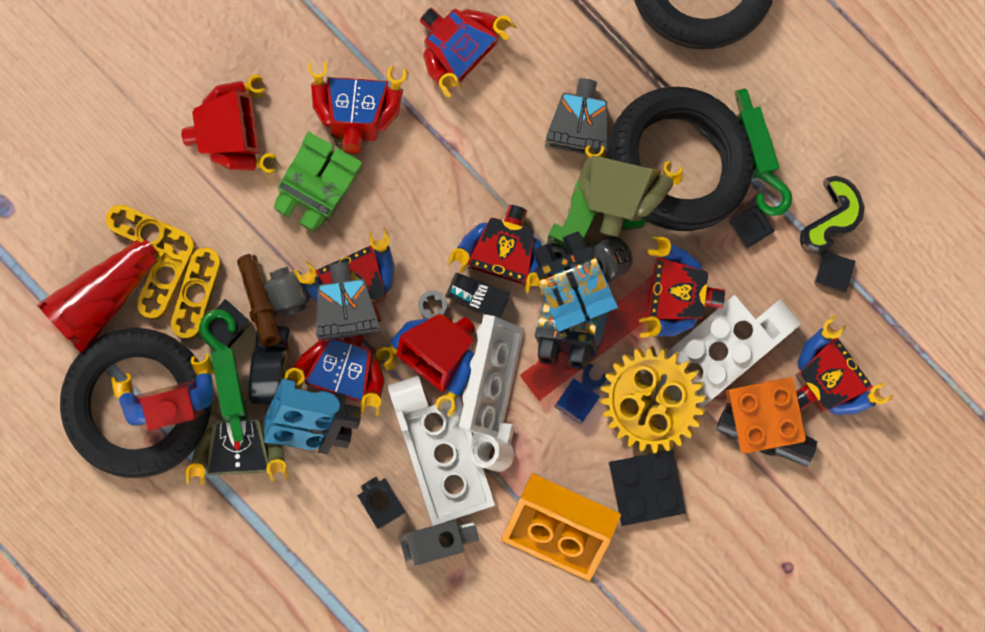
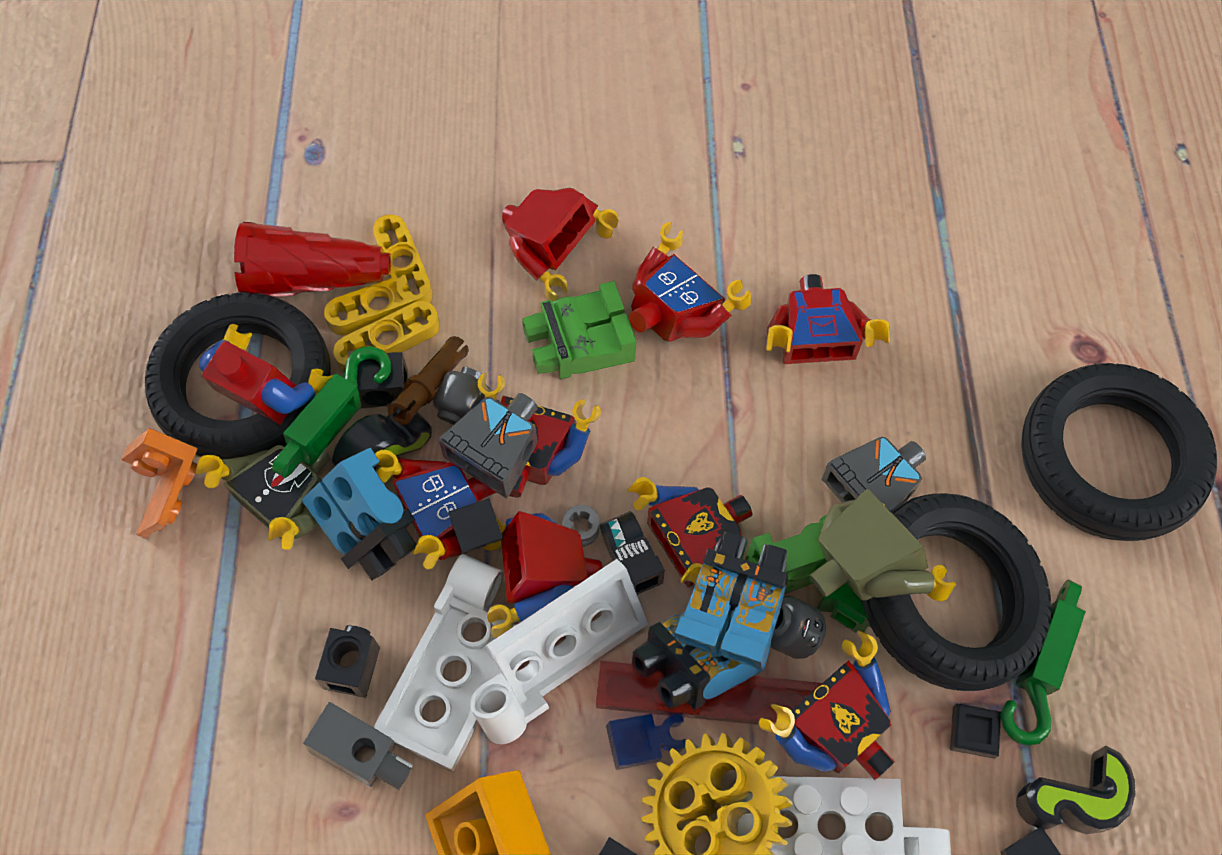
camera: 45 degrees right, 20 degrees down
(174, 506) = (172, 461): none -> orange bracket
(380, 365) = (475, 526): none -> black tile

